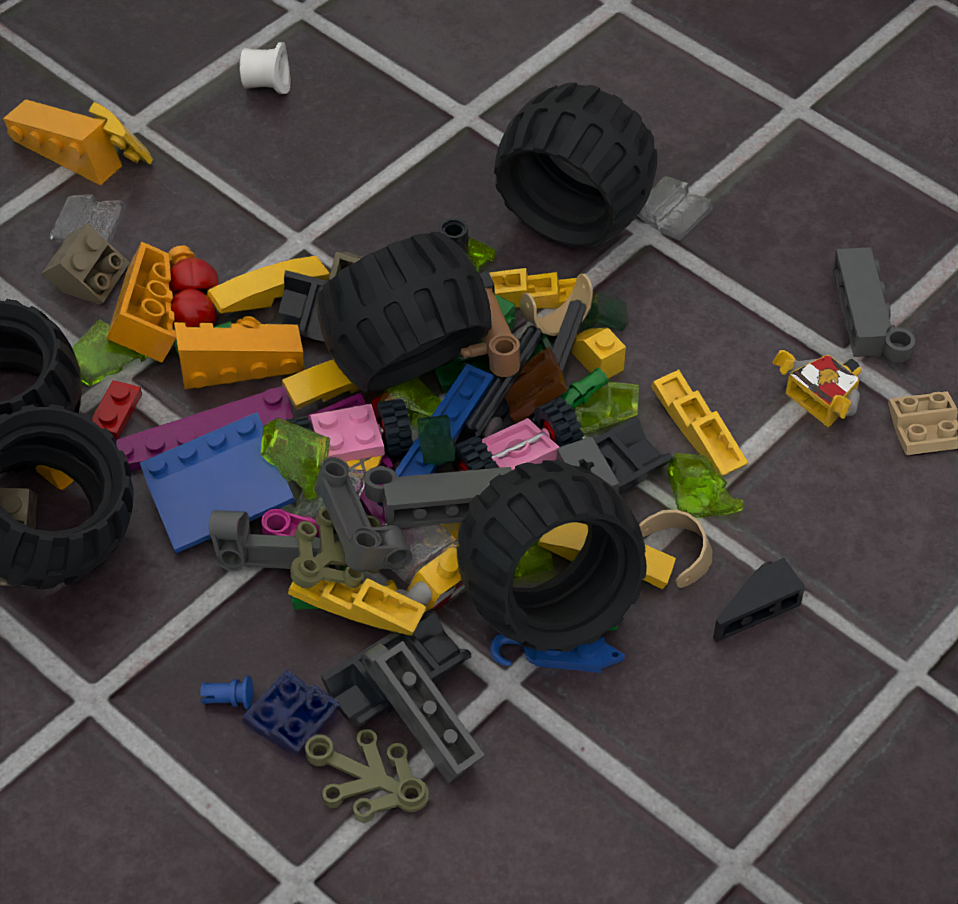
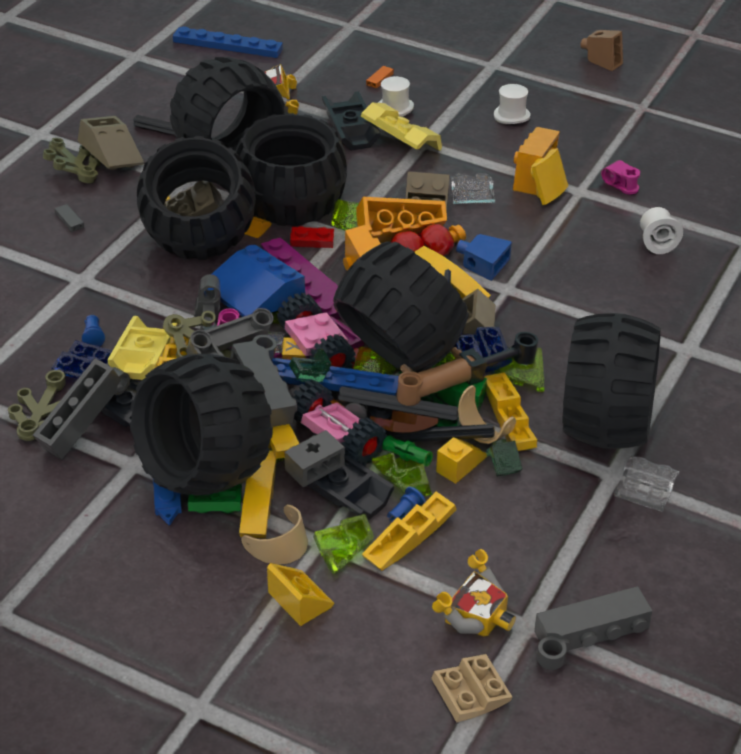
camera: 75 degrees right, 10 degrees down
(135, 74) = (622, 177): none -> dark pink piece
(240, 240) = (485, 255): none -> blue torso
(295, 453) = (277, 298): clear neon green slope -> none
(307, 626) = (139, 349): none -> light yellow piece
(659, 415) = (406, 504): none -> blue pin
(766, 594) = (240, 590): black slope -> none
(774, 541) = (296, 593): none -> yellow slope

